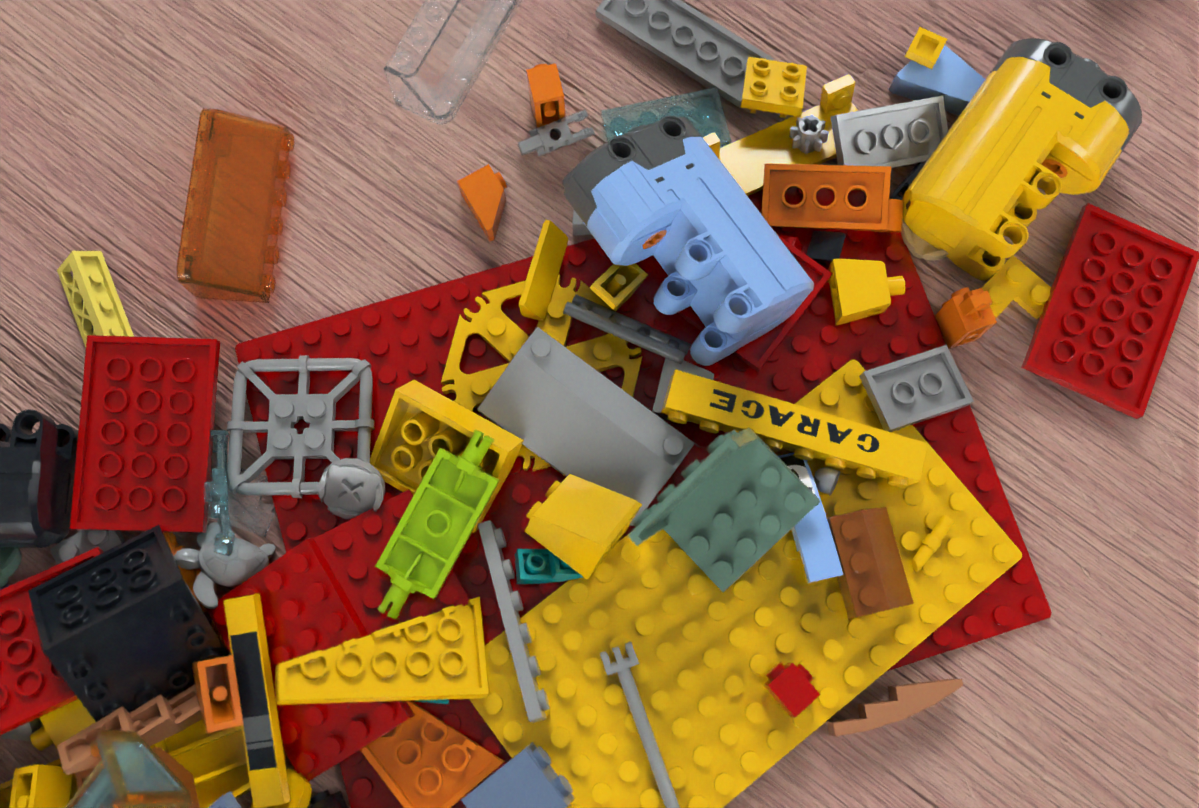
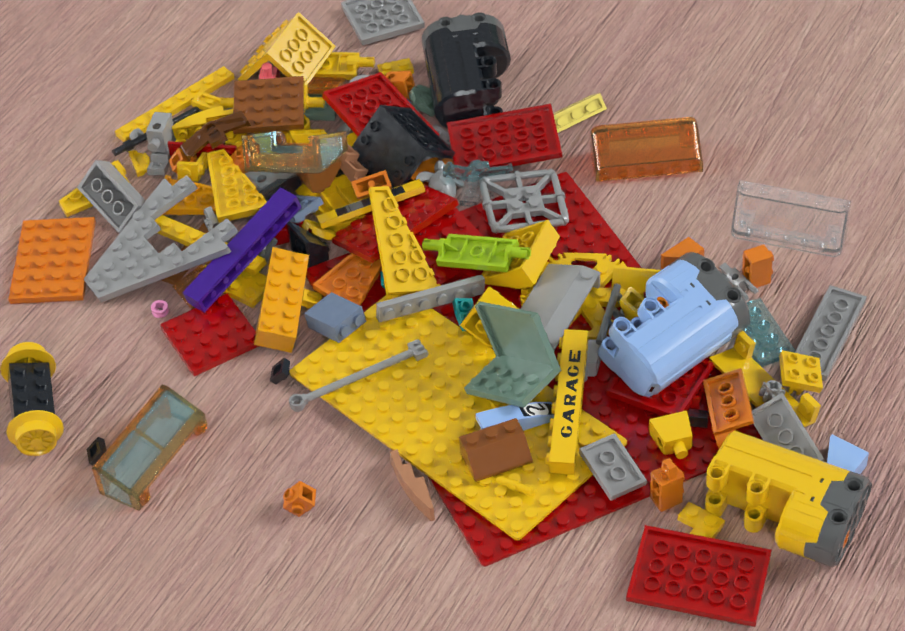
camera: 85 degrees right, 30 degrees down
(351, 487) = (491, 221): light grey tile -> none
(791, 687) = (413, 422): red brick -> none
(826, 479) = (541, 427): light grey hinge -> none
(925, 48) = (853, 441): yellow plate -> none

